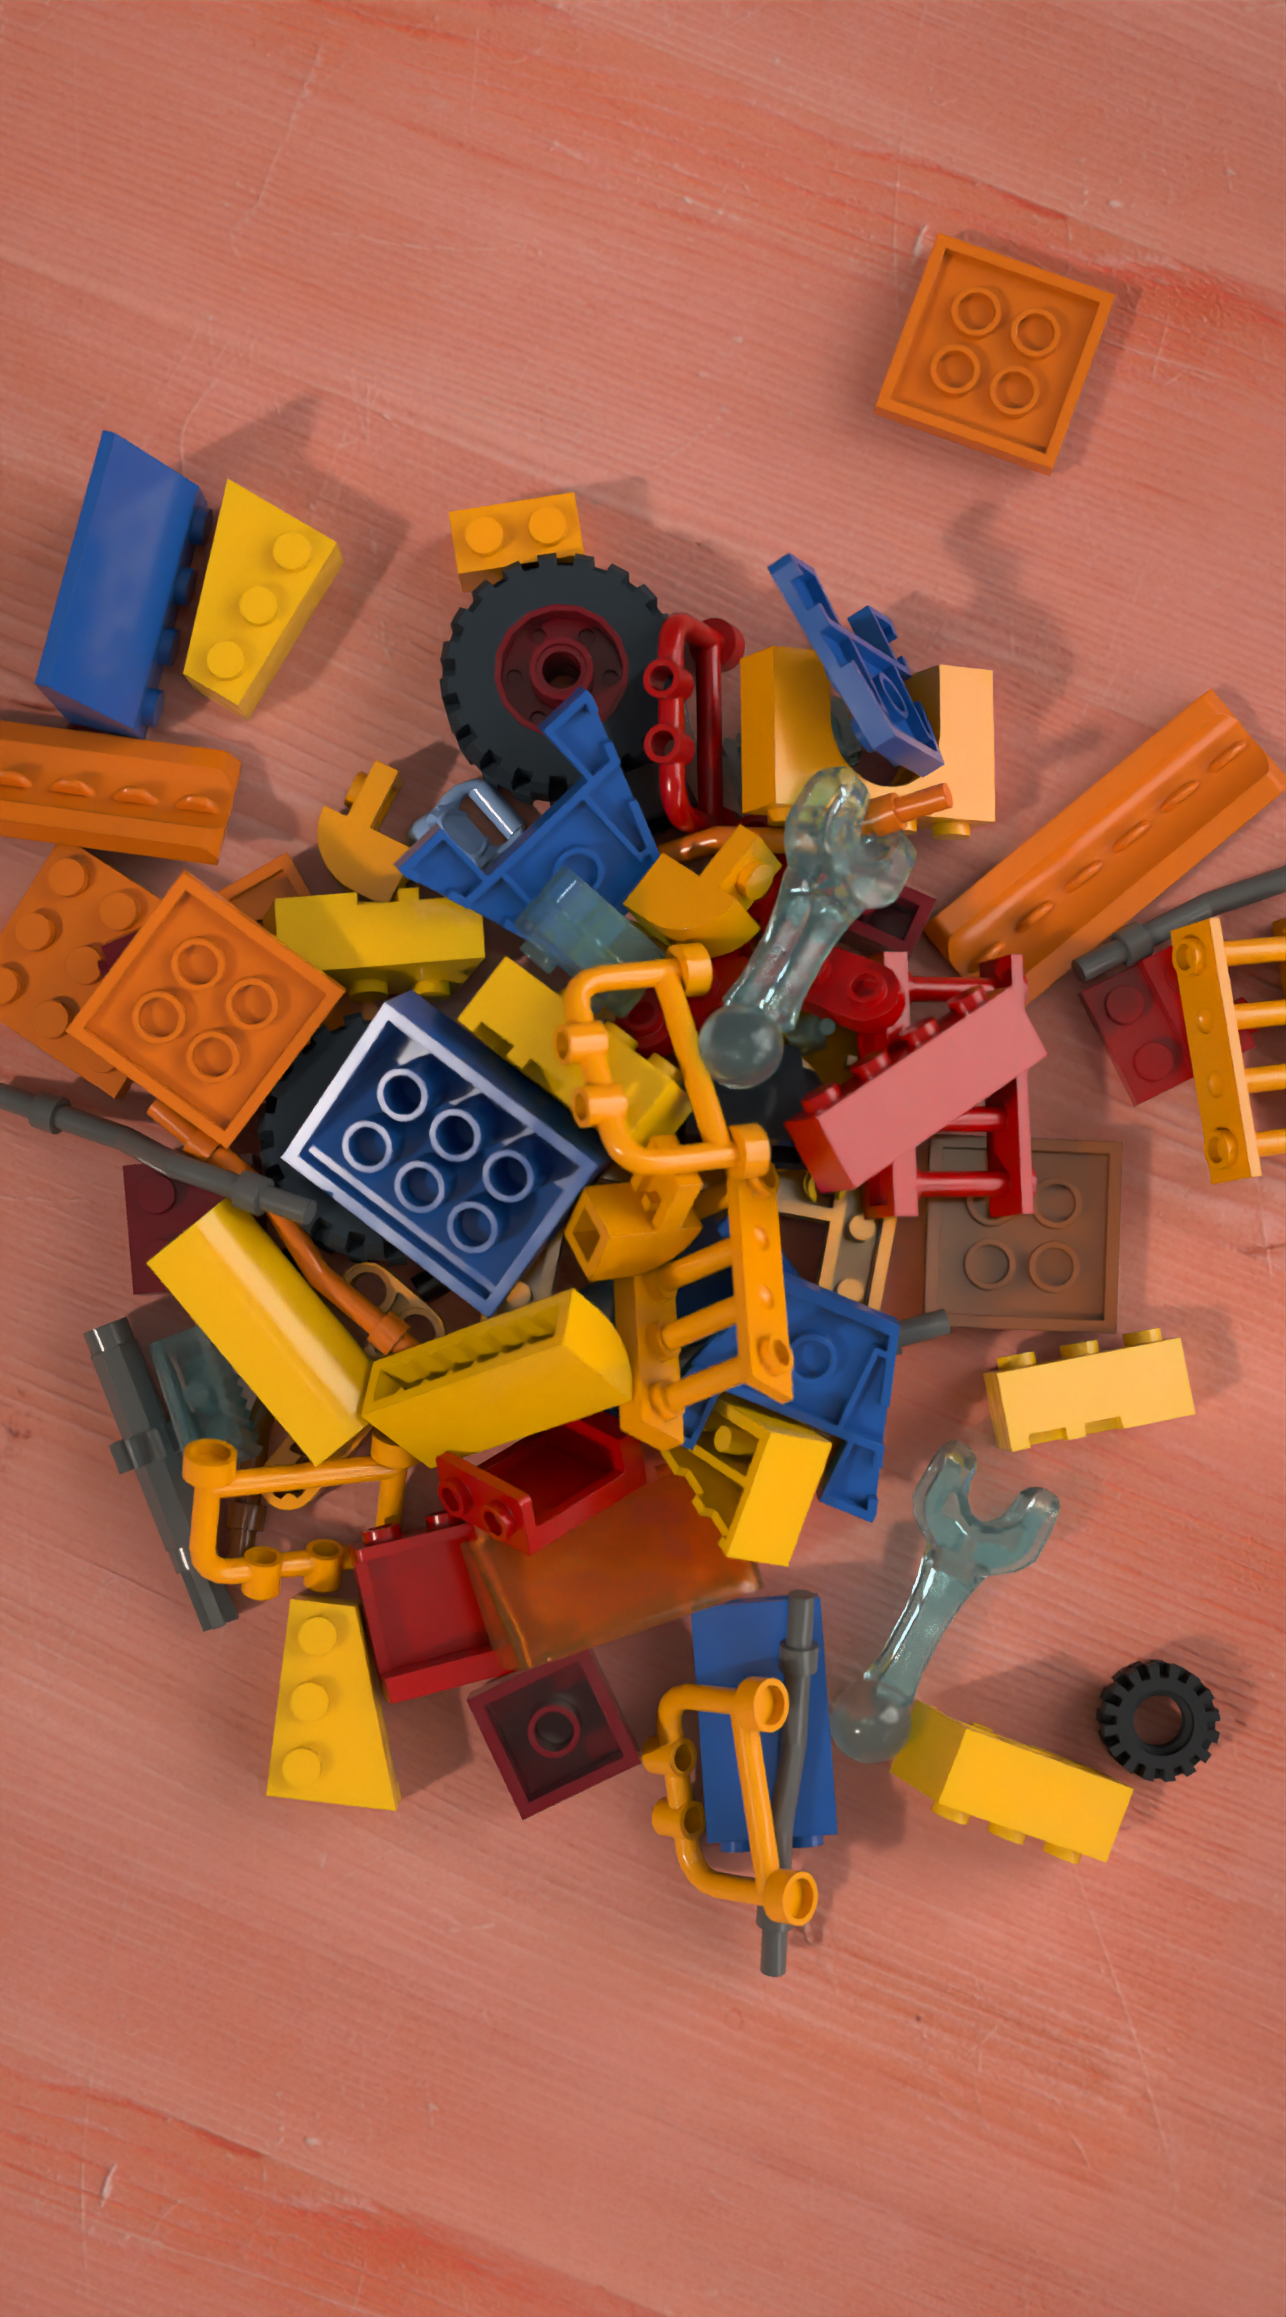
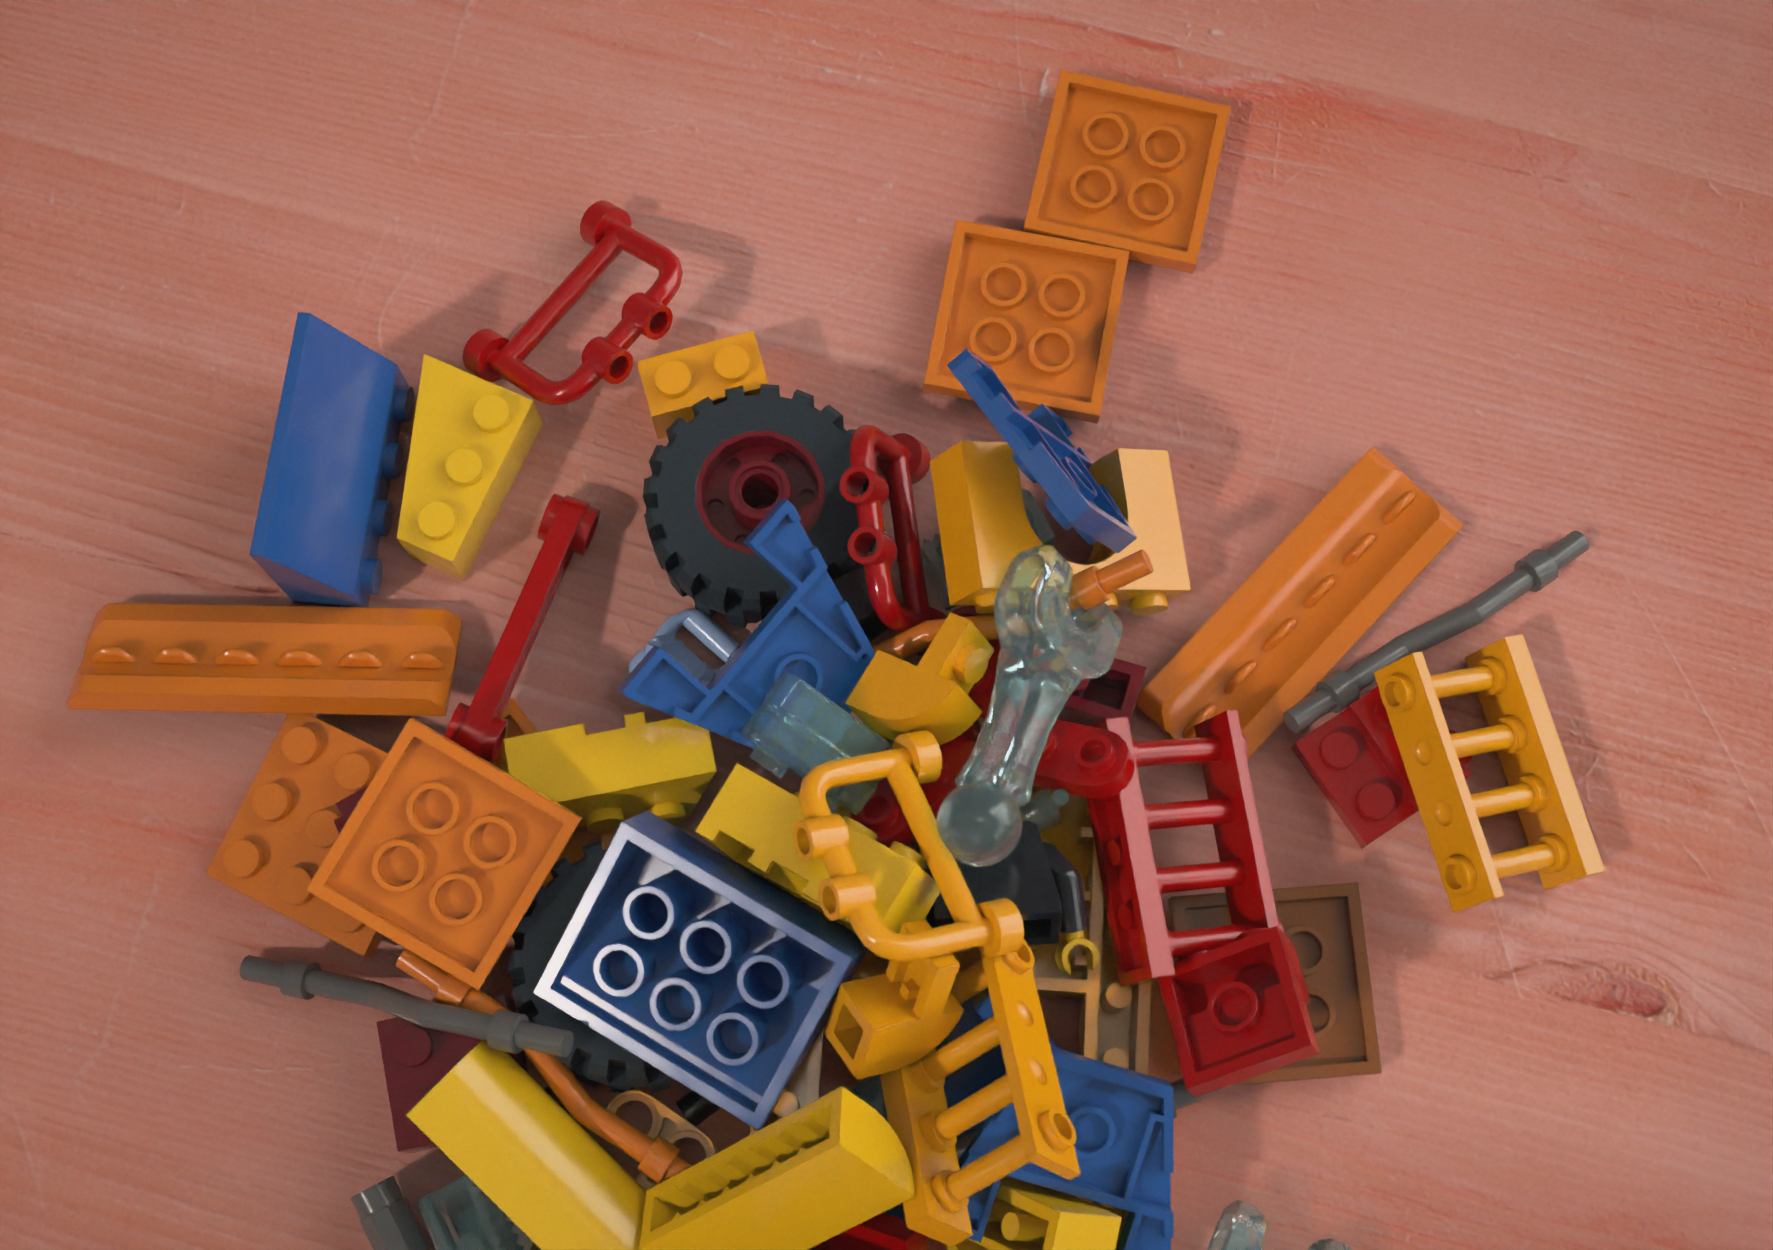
camera: 10 degrees left, 10 degrees down
(353, 846) = (577, 682): light orange brick -> none
(358, 681) = (565, 529): none -> red piece
(414, 505) = (605, 358): none -> red bar
(867, 506) = (1031, 311): none -> orange plate
(915, 1088) = (1153, 849): brick -> none
(976, 1257) = (1238, 1010): none -> red plate
(1088, 1390) = (1362, 1134): yellow wedge -> none

